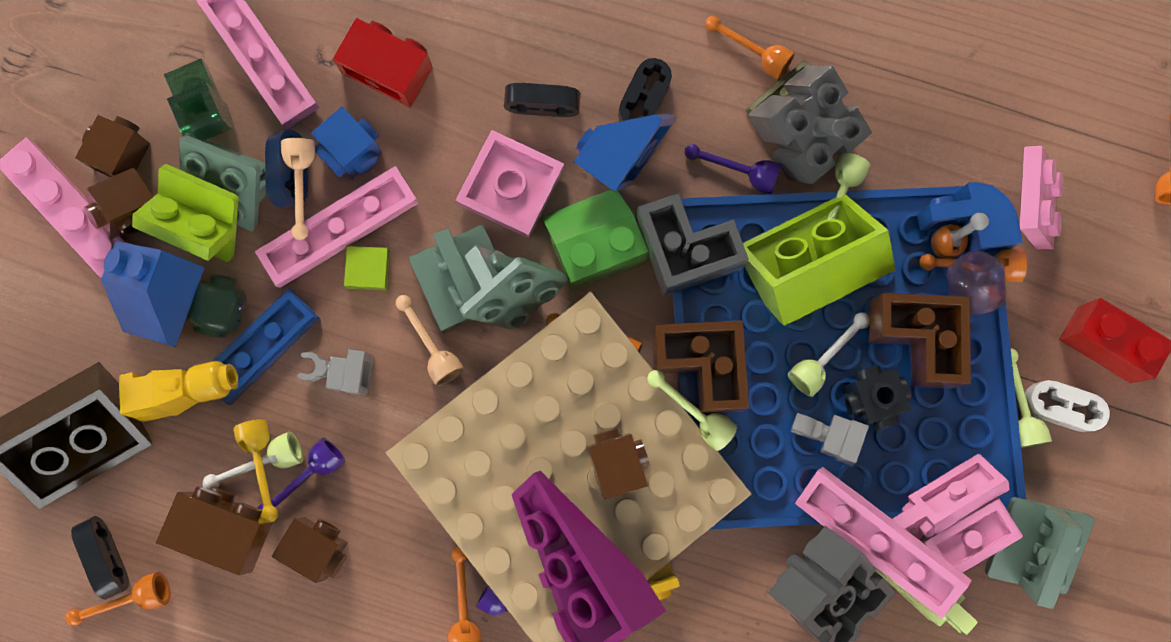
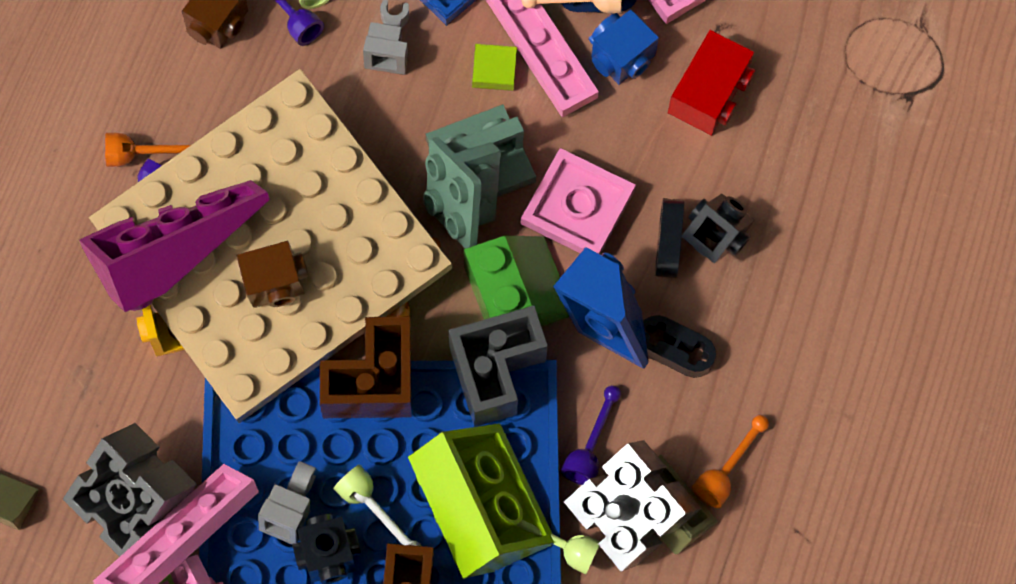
camera: 90 degrees right, 10 degrees down
(442, 365) = (390, 135): light nougat hinge -> none
(534, 52) = (718, 227): none -> black brick
(714, 428) = (305, 383): yellowish green hinge -> none

